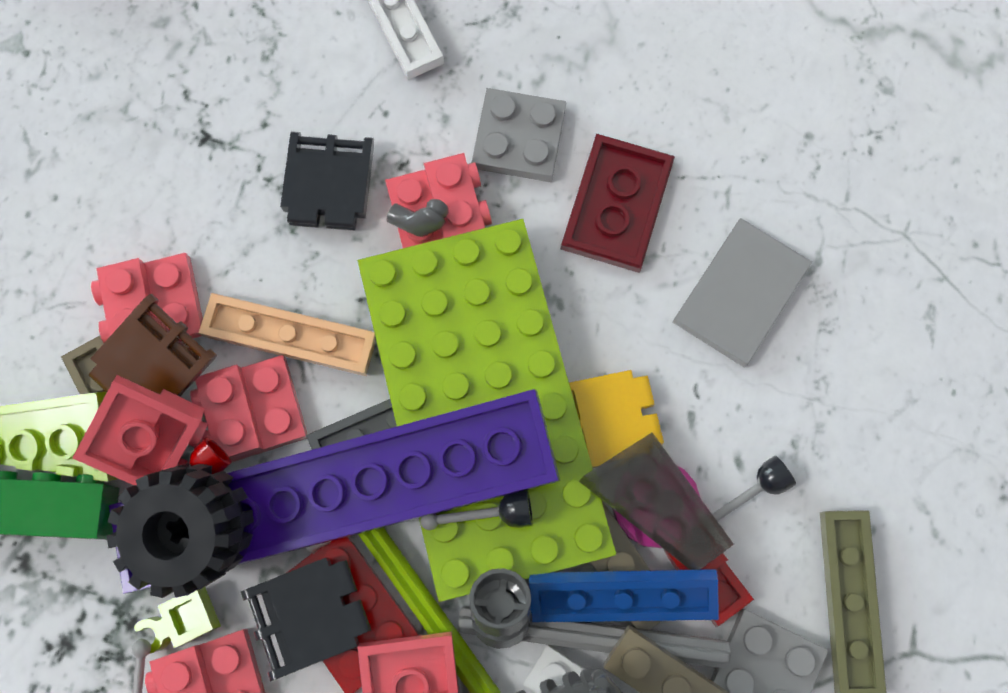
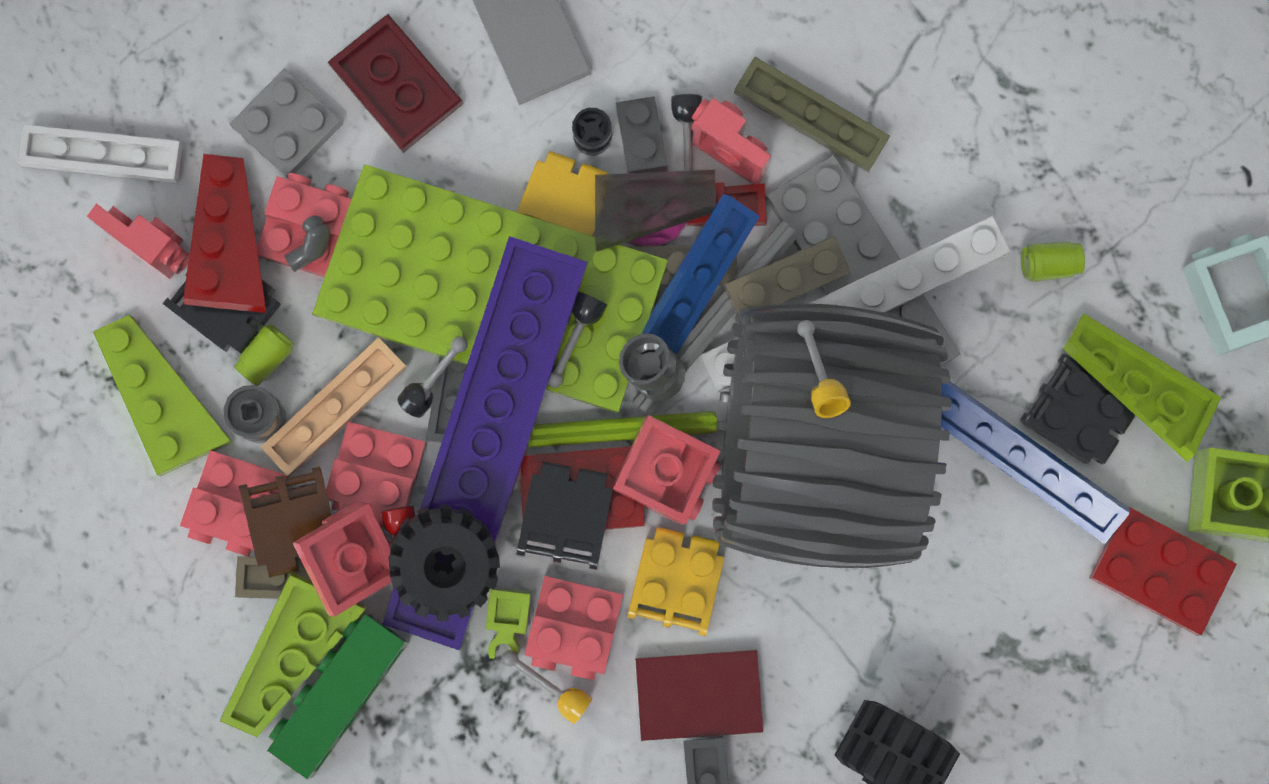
camera: 60 degrees left, 5 degrees up
(200, 192) = (161, 405): none -> lime wing
(236, 268) = (254, 413): none -> dark grey wheel
(299, 244) = (264, 354): none -> lime piece
(330, 80) = (149, 240): none -> coral plate
(340, 402) = (418, 397): none -> hinge
(368, 149) = (223, 247): none -> red wing
(697, 397) = (592, 124): none -> black wheel
(718, 452) = (641, 135): none -> dark grey plate
(770, 527) = (720, 133): none -> coral plate

